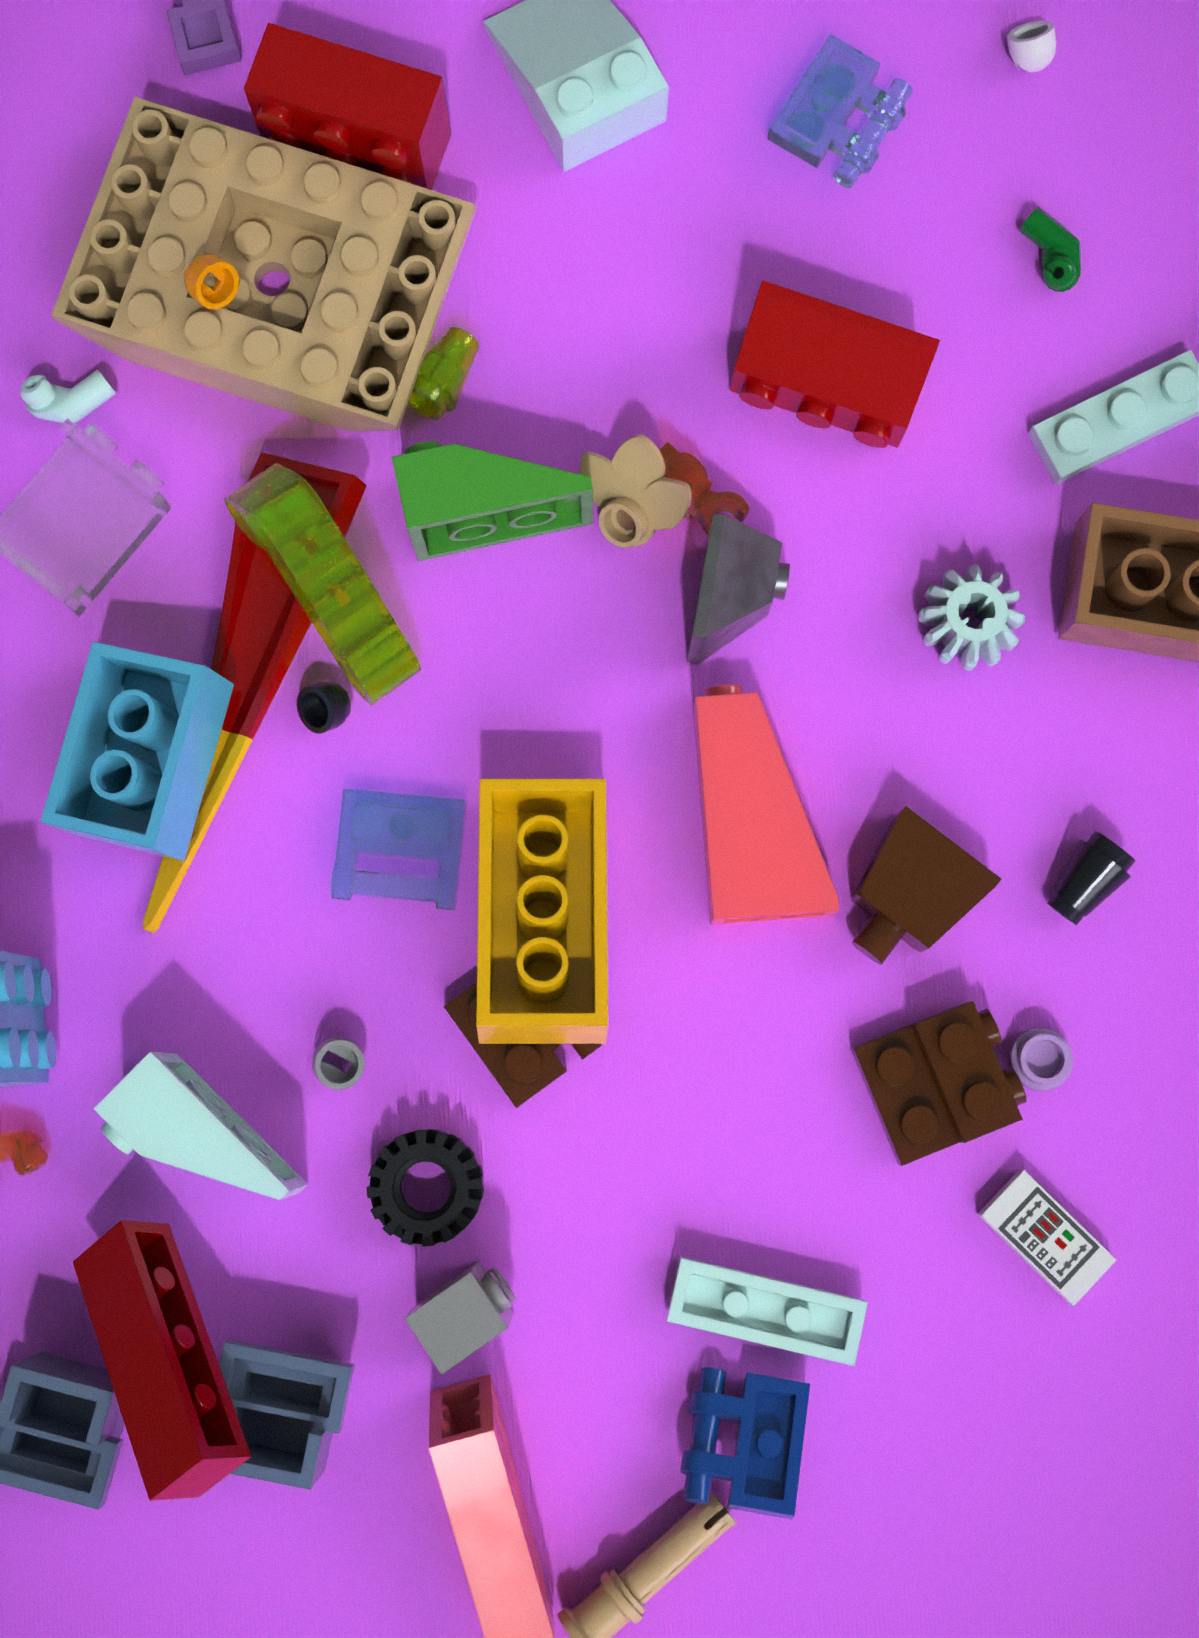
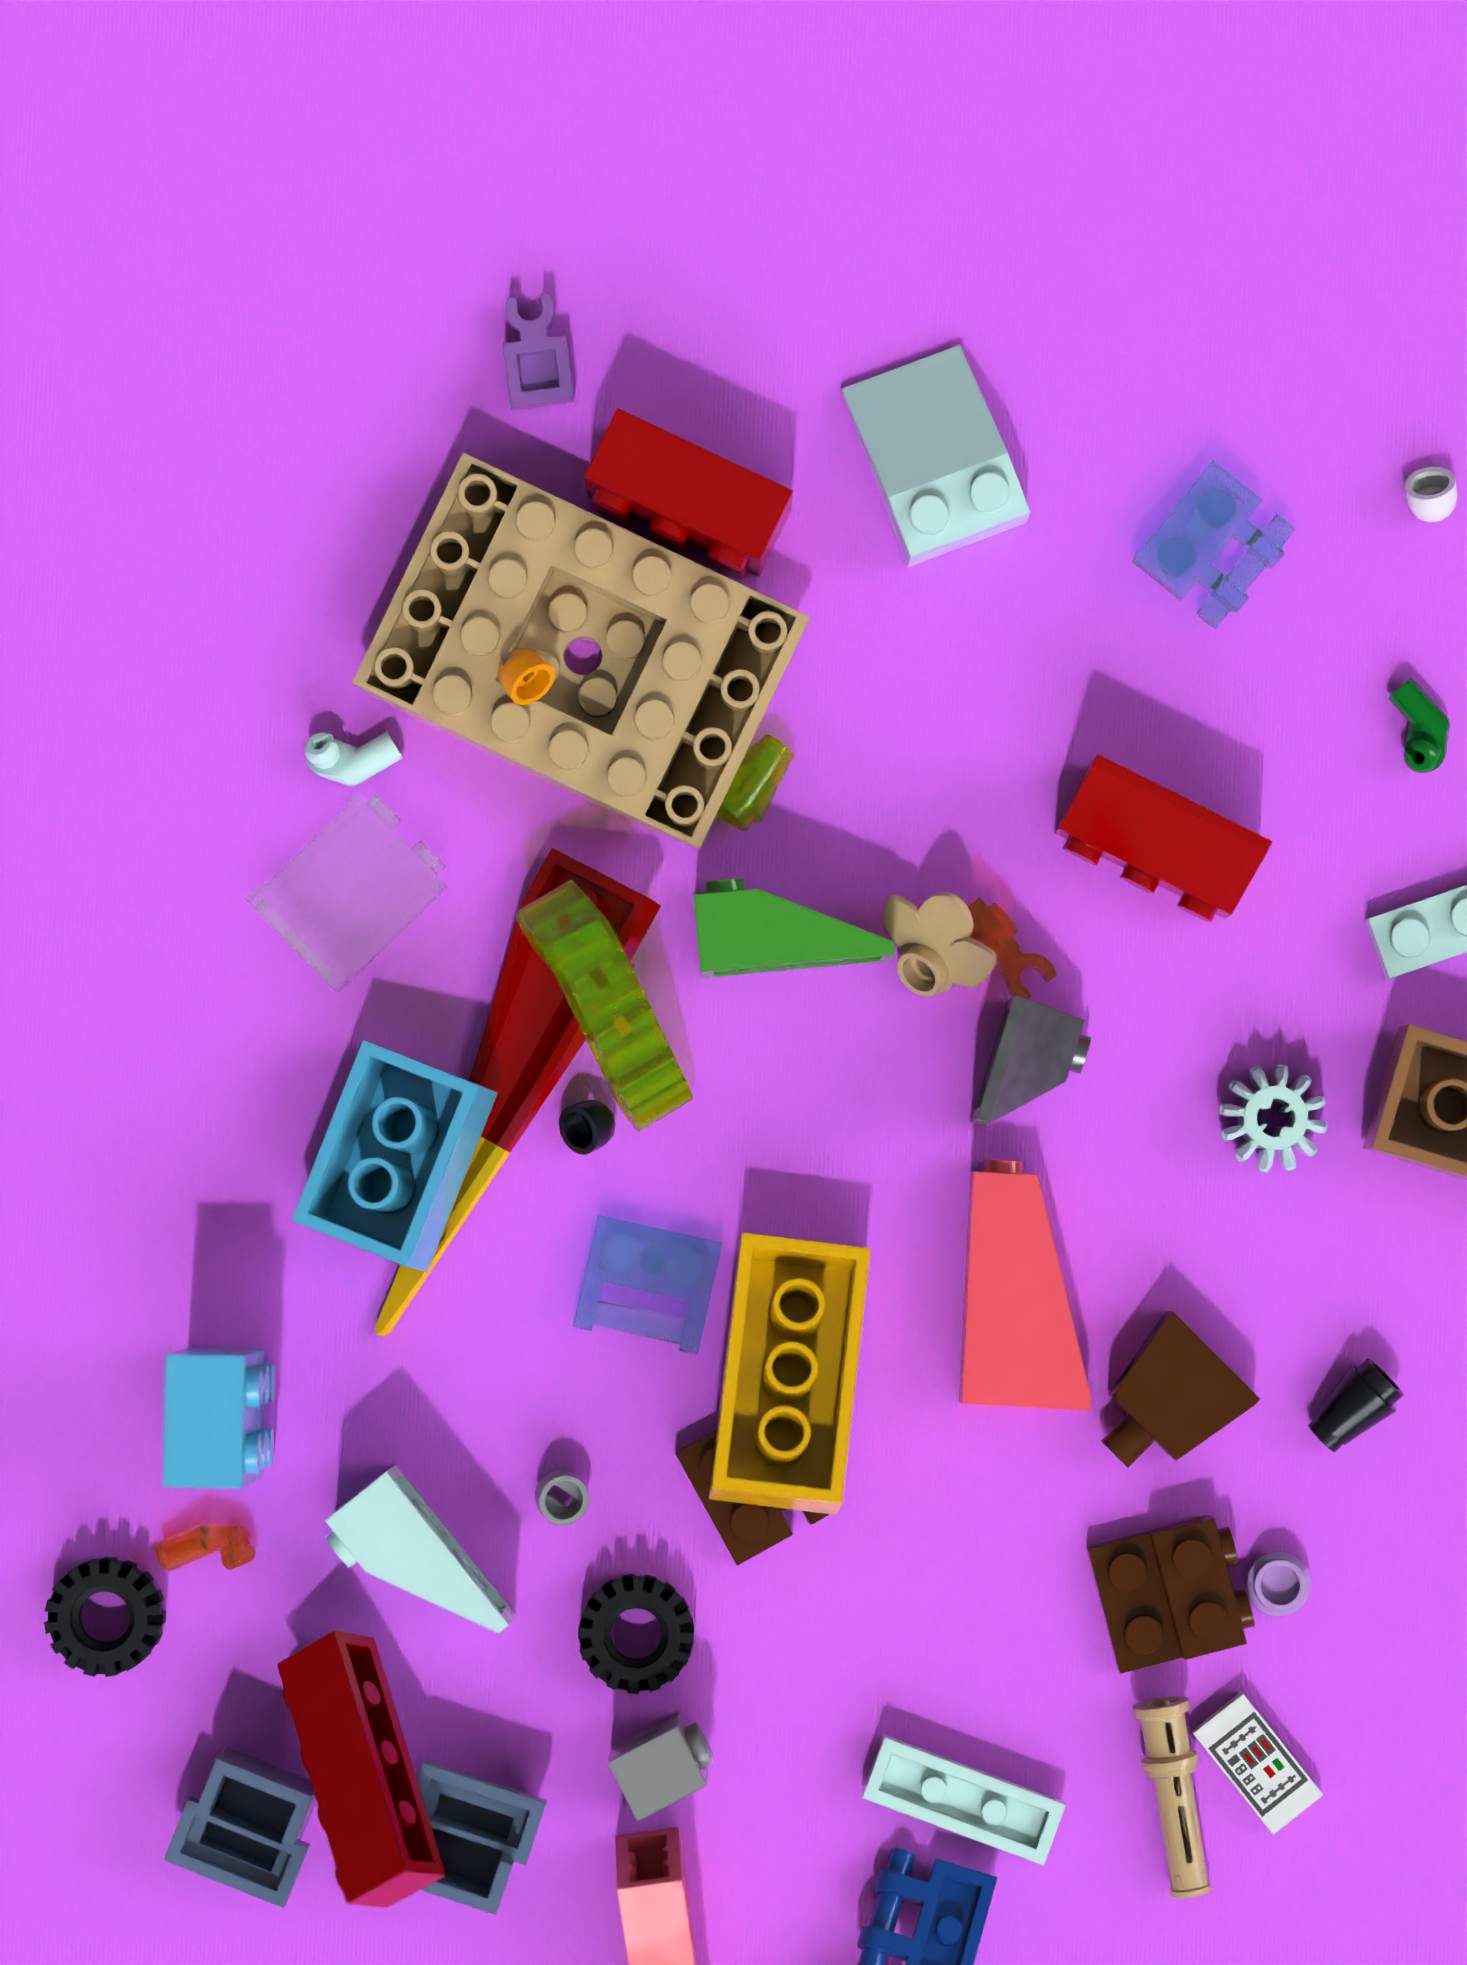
camera: 10 degrees right, 5 degrees up
(964, 1250) = (1170, 1766): none -> tan pin

